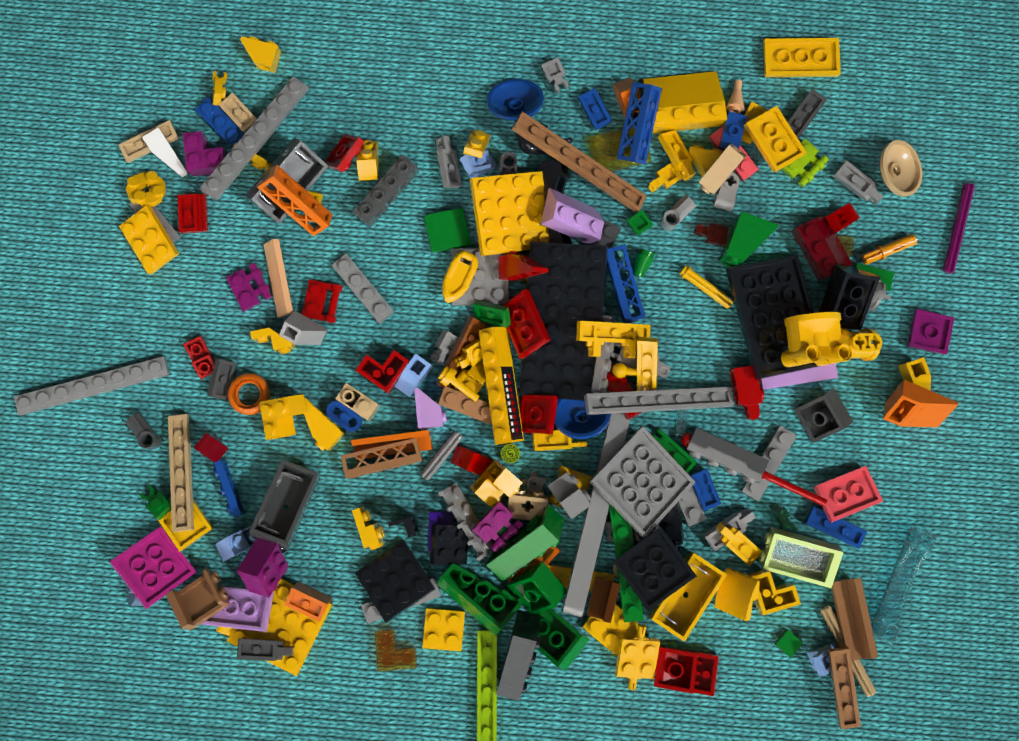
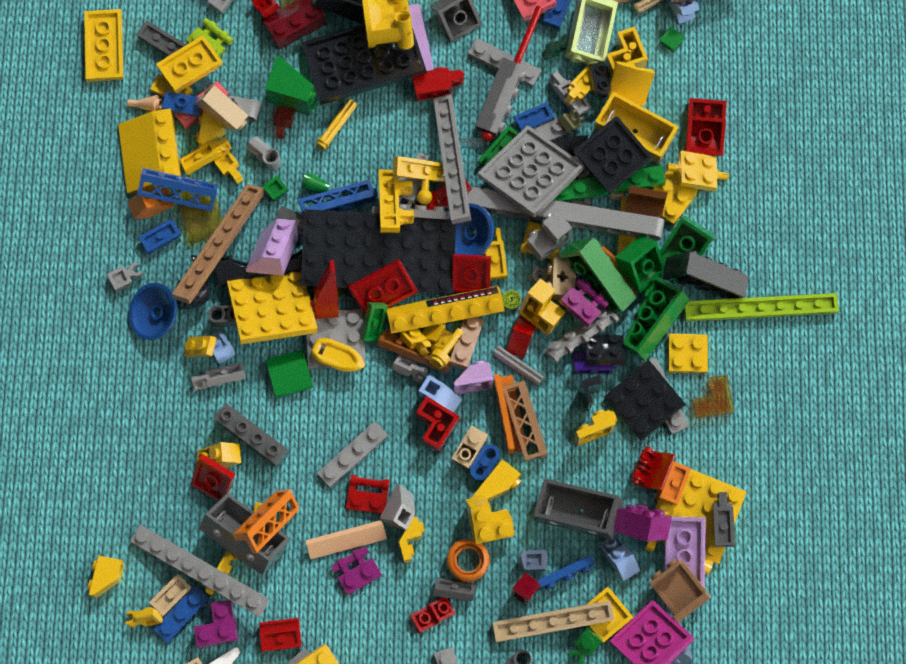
camera: 90 degrees left, 10 degrees down
(243, 457) = (533, 560): none -> sand blue plate
(322, 583) = (653, 469): none -> red hinge
(698, 527) = (570, 122): none -> olive tile
(743, 561) = (599, 80): none -> black plate

